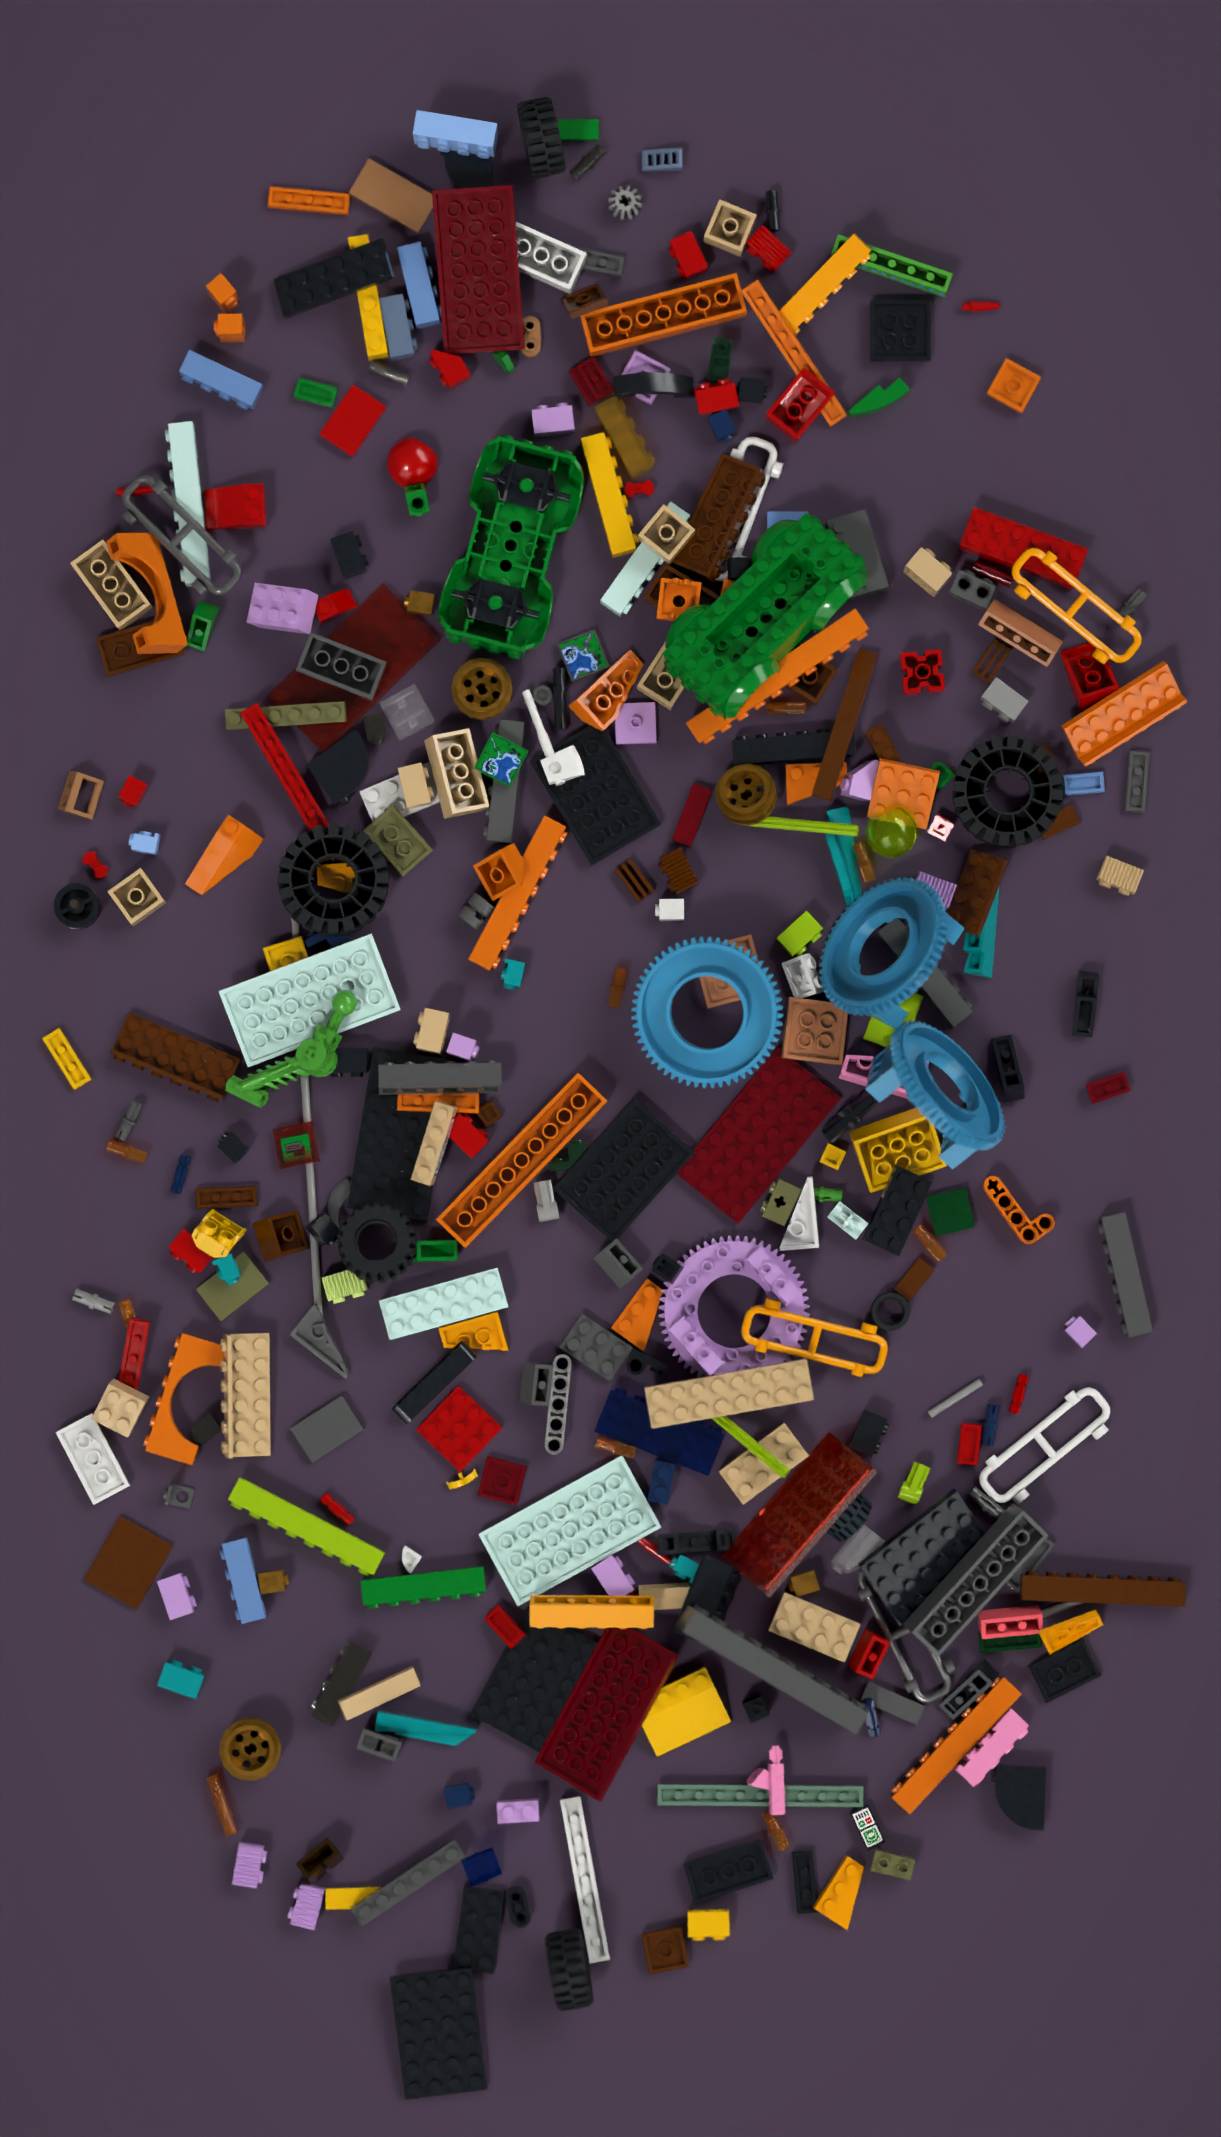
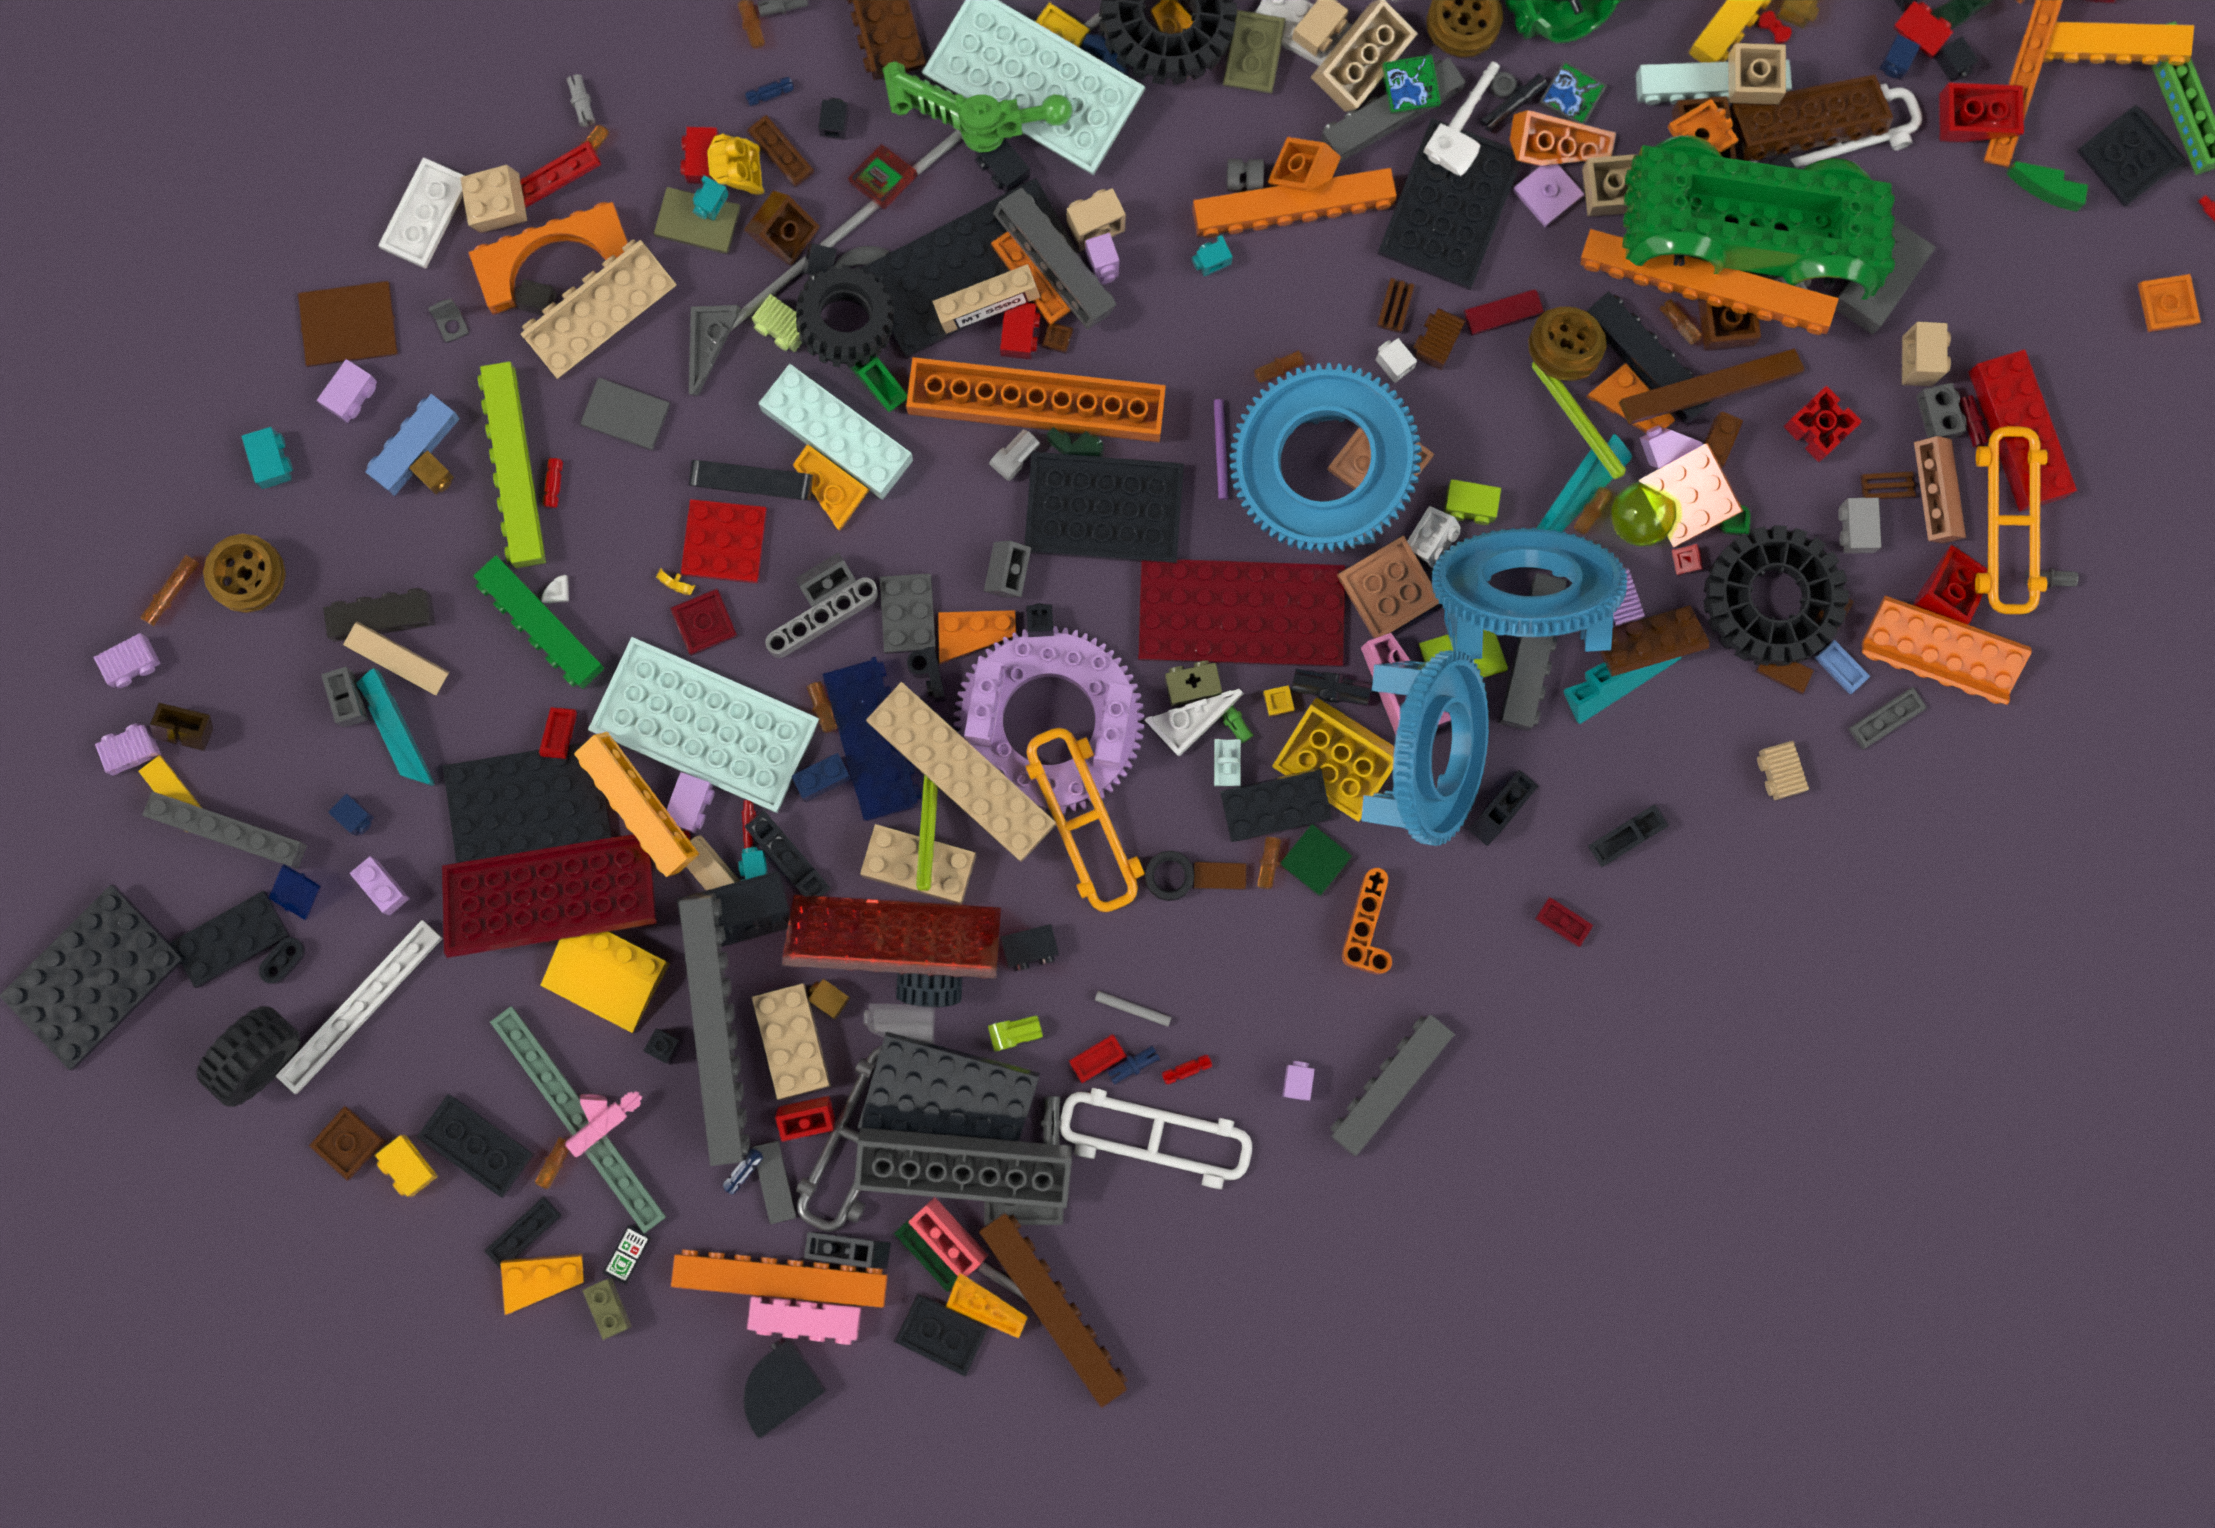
camera: 45 degrees right, 5 degrees down
(642, 1066) = (1221, 449): none -> medium lavender bar

